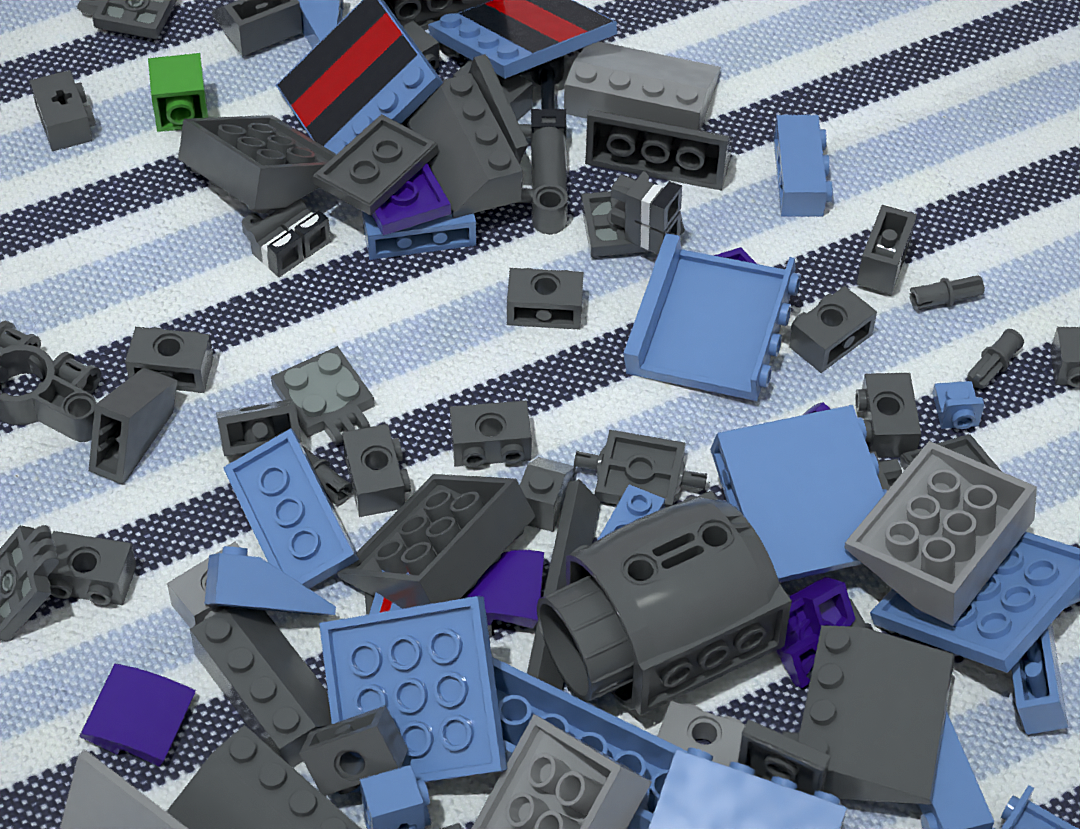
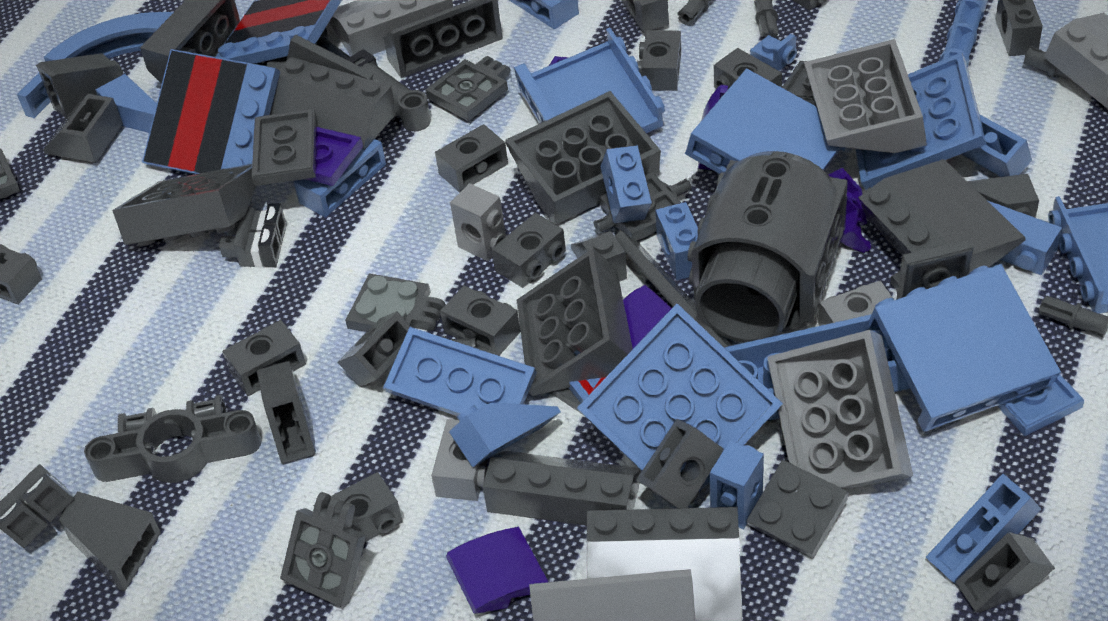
camera: 35 degrees left, 5 degrees down
(177, 90) = (80, 204): bright green head -> none
(468, 367) = (477, 221): none -> light grey brick
(622, 436) = (625, 184): none -> medium blue brick
(631, 375) = (566, 153): none -> dark grey slope
(646, 210) = (493, 64): dark grey hips -> none
(989, 744) = (1010, 191): none -> dark grey slope

